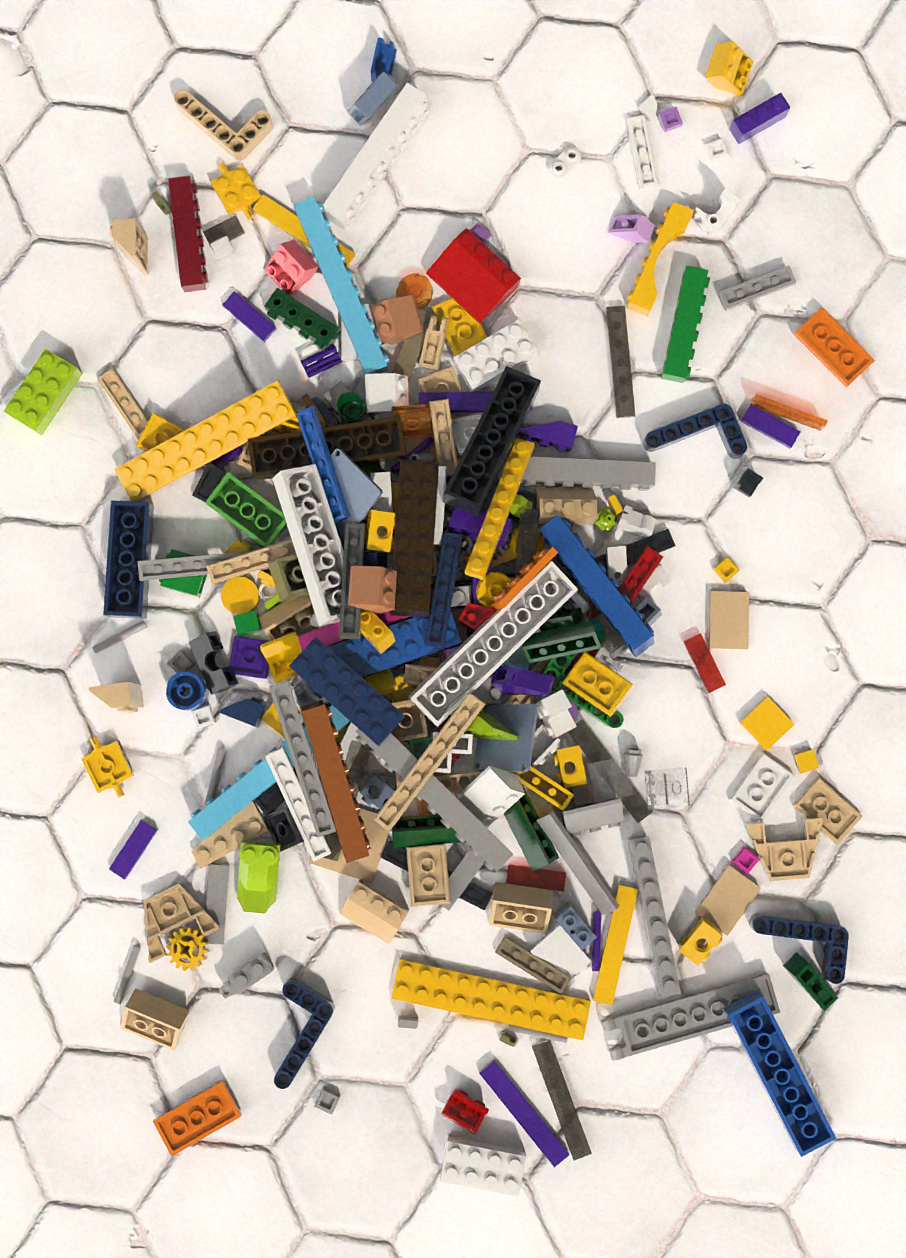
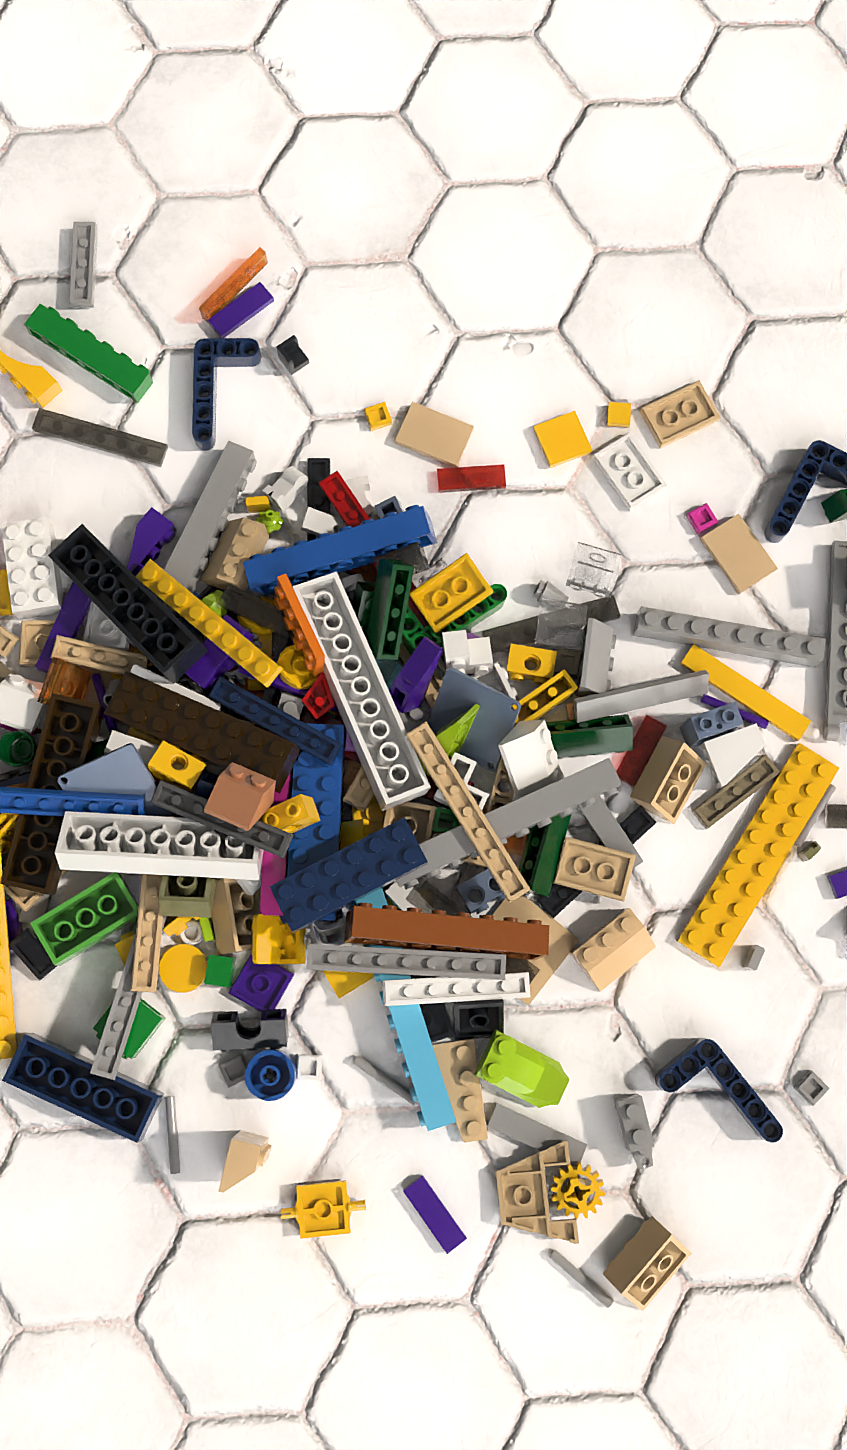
camera: 75 degrees left, 5 degrees down
(197, 1118) = (781, 1254): orange plate -> none
(246, 711) = (322, 1012): dark blue slope -> none
(702, 929) = (762, 592): yellow brick -> none
(786, 858) = (716, 472): tan wing -> none
(834, 347) = (183, 212): orange plate -> none

